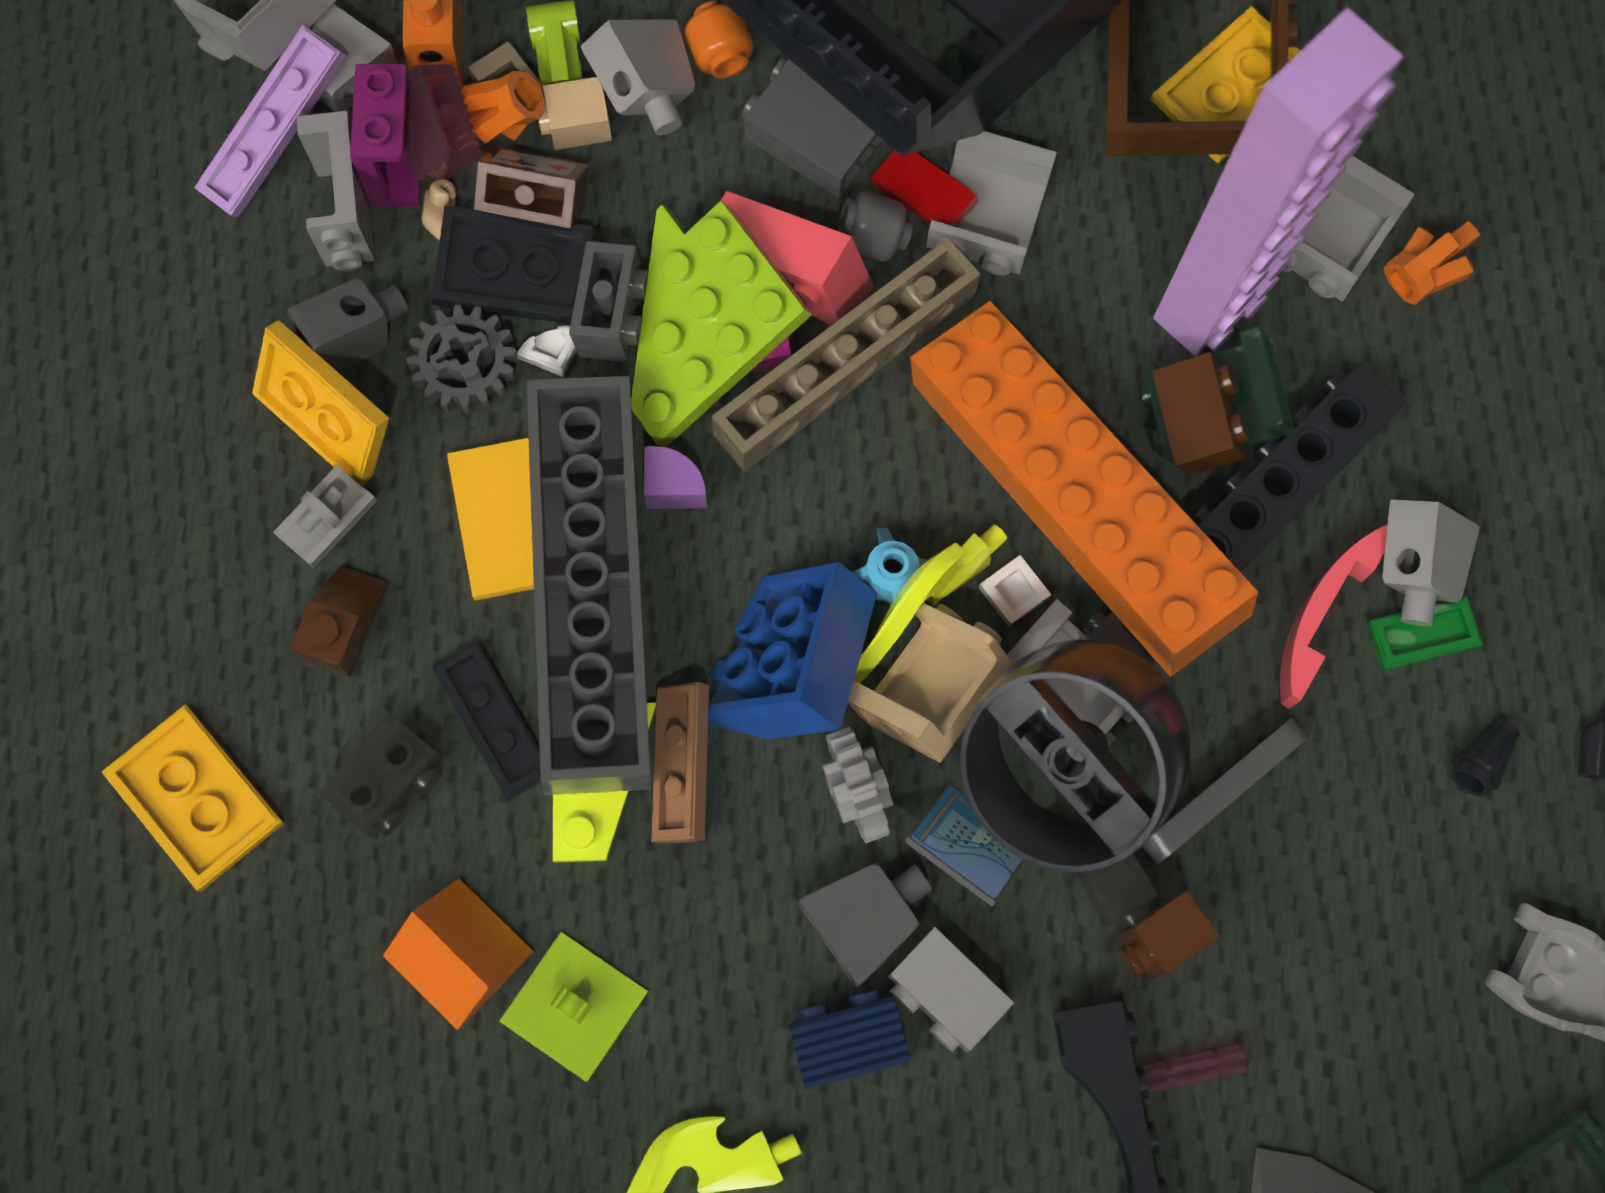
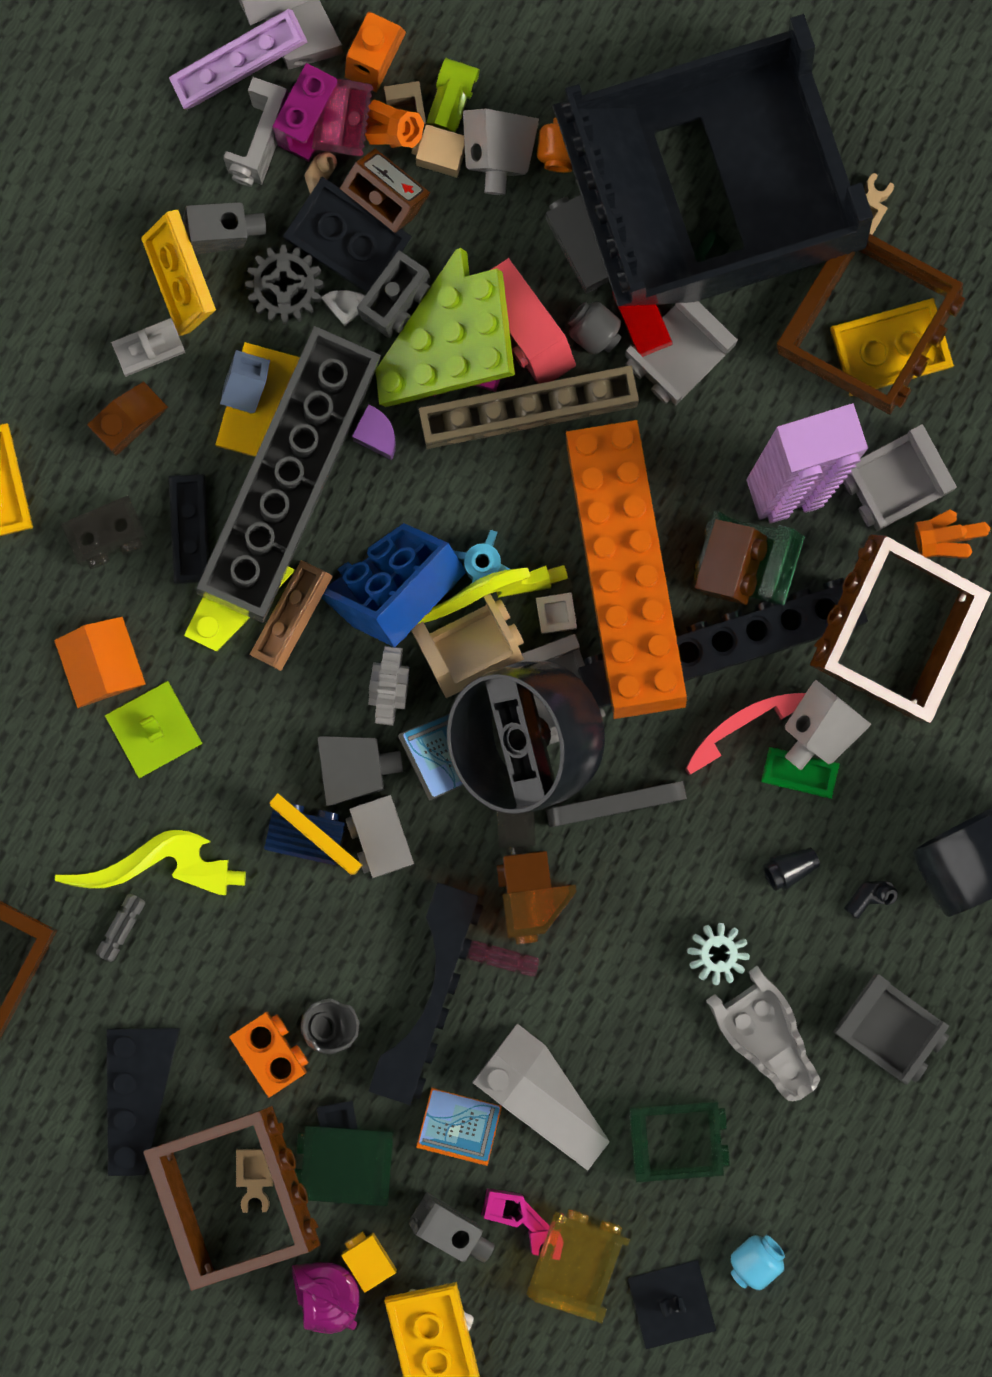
camera: 30 degrees right, 10 degrees up
(472, 499) = (245, 382): none -> sand blue panel
(868, 1031) = (315, 834): none -> yellow tile
(1209, 985) = (534, 911): none -> clear orange slope
(1460, 937) = (717, 941): none -> light aqua gear
(1512, 383) = (946, 651): none -> window

